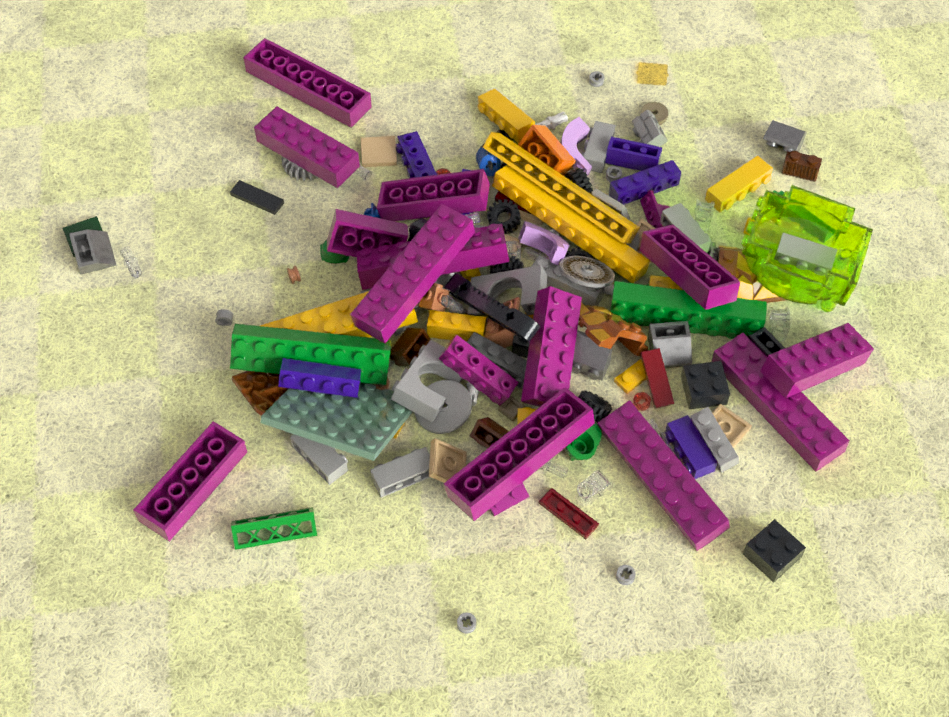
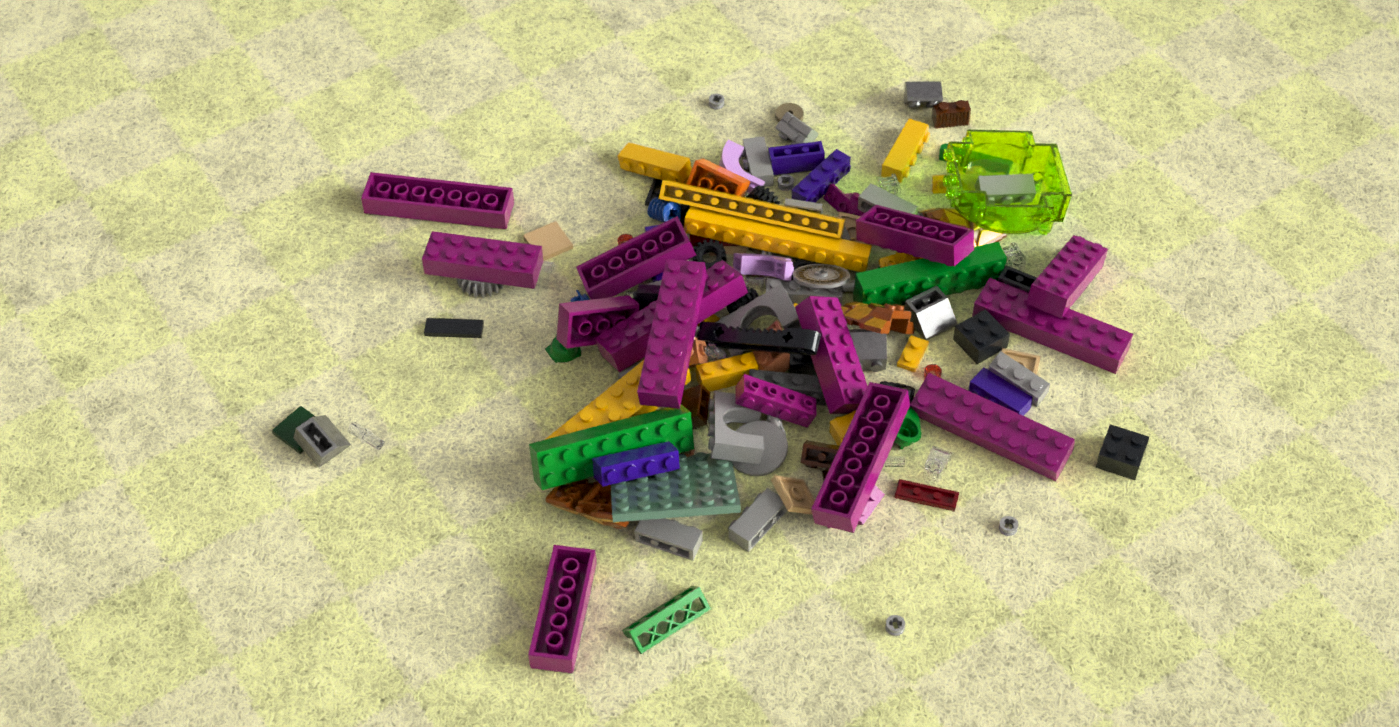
camera: 25 degrees left, 5 degrees down
(224, 317) = (495, 450): light grey bush -> none
(293, 274) = (539, 385): nougat bush -> none
(414, 155) = (589, 233): dark purple brick -> none
(510, 407) = (820, 426): dark tan tile -> none
(552, 122) = (700, 153): white pin -> none
(652, 74) = (764, 79): clear yellow piece -> none
(657, 378) = (936, 347): dark red tile -> none

